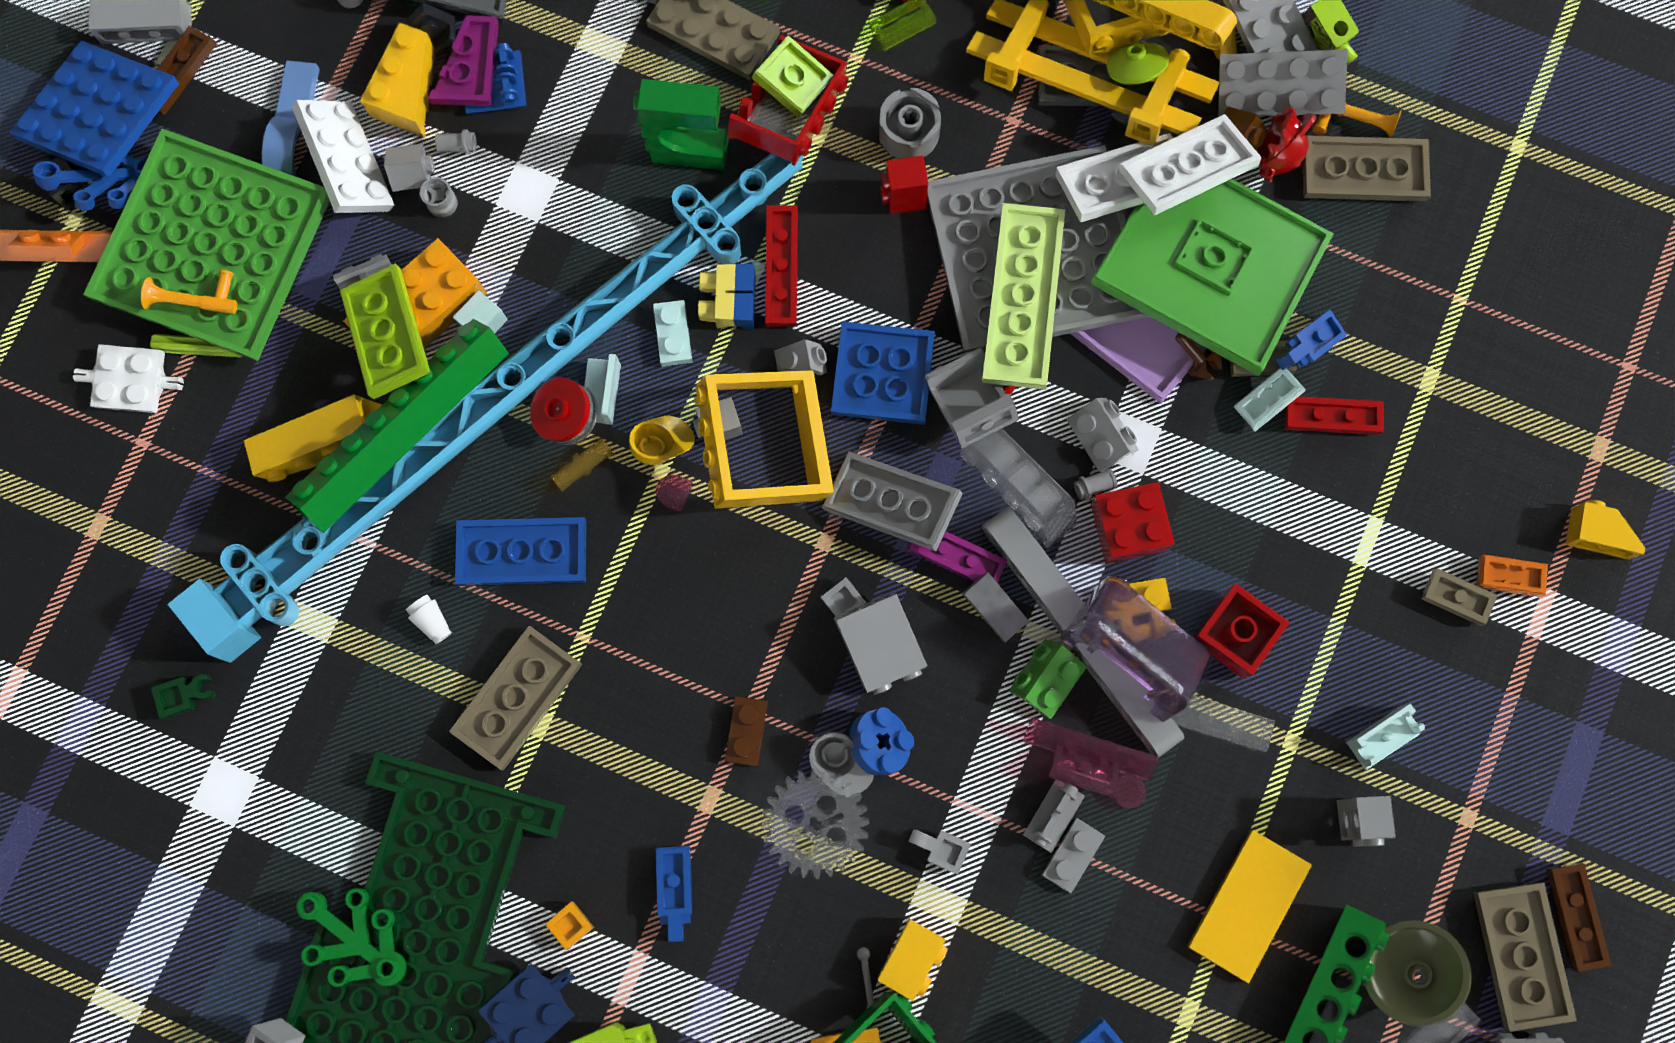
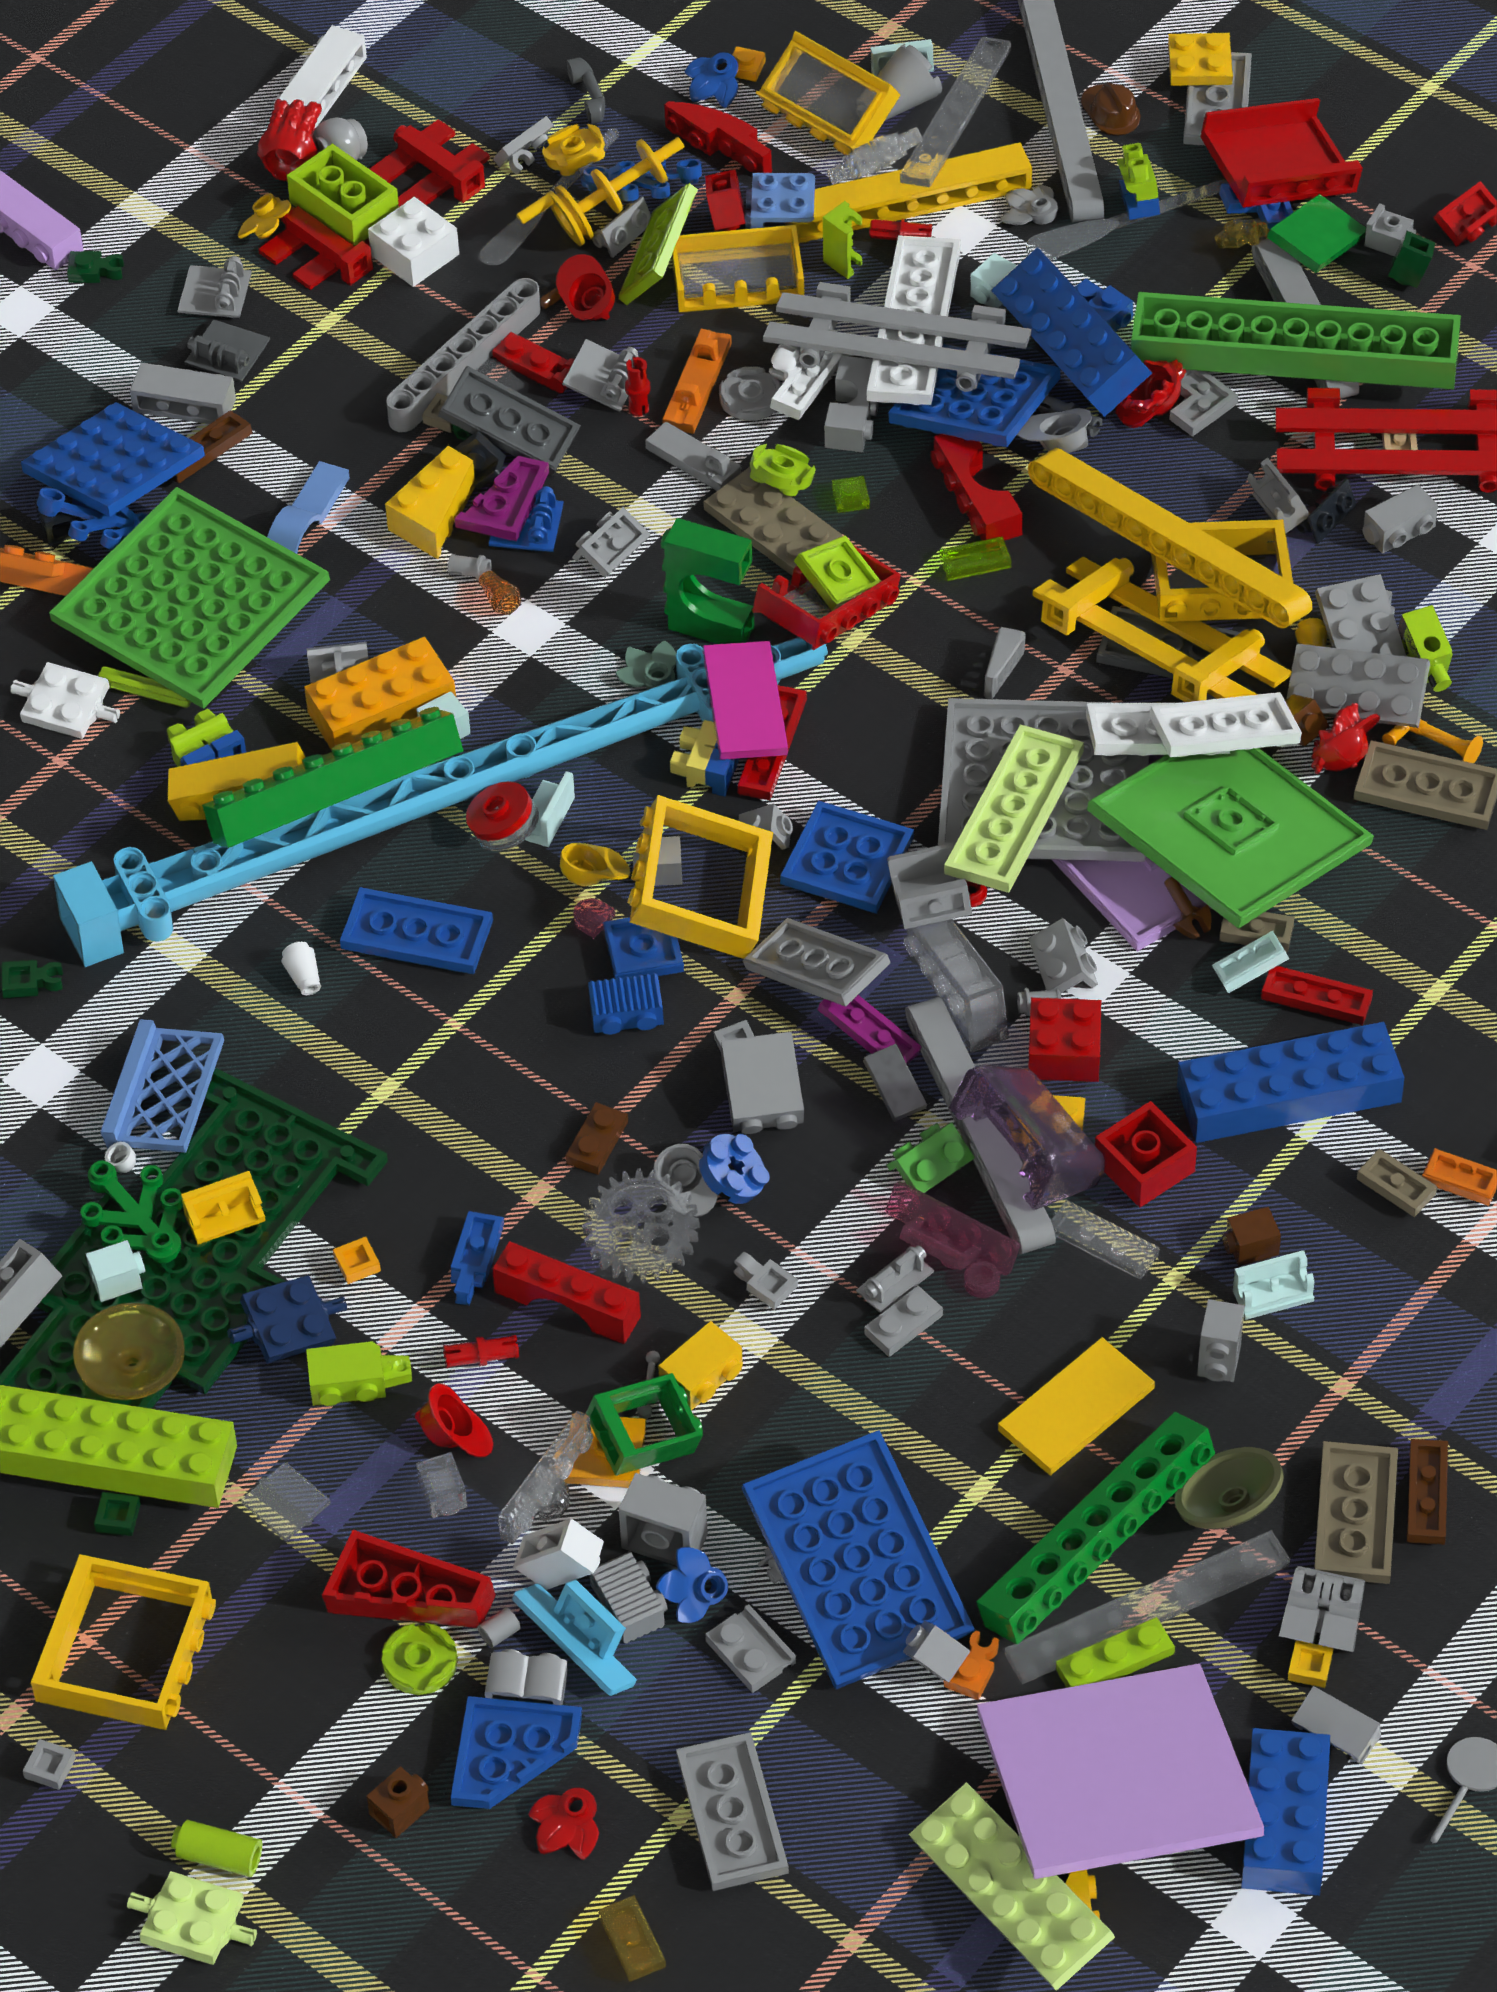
camera: 15 degrees right, 25 degrees down
(153, 294) = (124, 621): light orange piece -> none
(273, 386) = (206, 741): none -> lime hips
(311, 795) = (136, 1076): none -> medium blue fence
(318, 865) = (121, 1157): none -> white hinge
(342, 156) = (350, 551): white plate -> none
(352, 1013) = (115, 1270): none -> light aqua brick
(384, 331) = (346, 694): lime tile -> none
(408, 166) = (414, 575): light grey brick -> none
(432, 916) = (223, 1207): none -> yellow hinge
(437, 190) = (436, 609): light grey wheel -> none
(493, 166) = (501, 594): none -> clear orange cone
(515, 698) = (368, 1054): dark tan plate -> none
(576, 86) = (612, 543): none -> light grey bracket
(581, 464) = (504, 869): clear yellow pin -> none
(645, 209) = (648, 668): none -> sand green plate
(672, 333) = (638, 778): light aqua plate -> none
(709, 994) = (480, 1351): none -> red pin
(729, 527) = (641, 950): none -> blue plate
(732, 585) = (626, 1003): none -> blue brick
(749, 237) = (745, 700): none -> dark pink tile
(769, 914) = (602, 1304): none -> red arch
(905, 185) = (924, 692): red brick -> none
(909, 123) = (948, 643): light grey brick -> none
(960, 120) = (1005, 655): none -> light grey slope
(1137, 63) = (1206, 632): lime dish -> none
(1312, 341) = (1312, 919): blue hinge -> none
(1340, 517) = (1290, 1082): none -> blue brick
(1353, 689) = (1252, 1236): none -> reddish brown brick

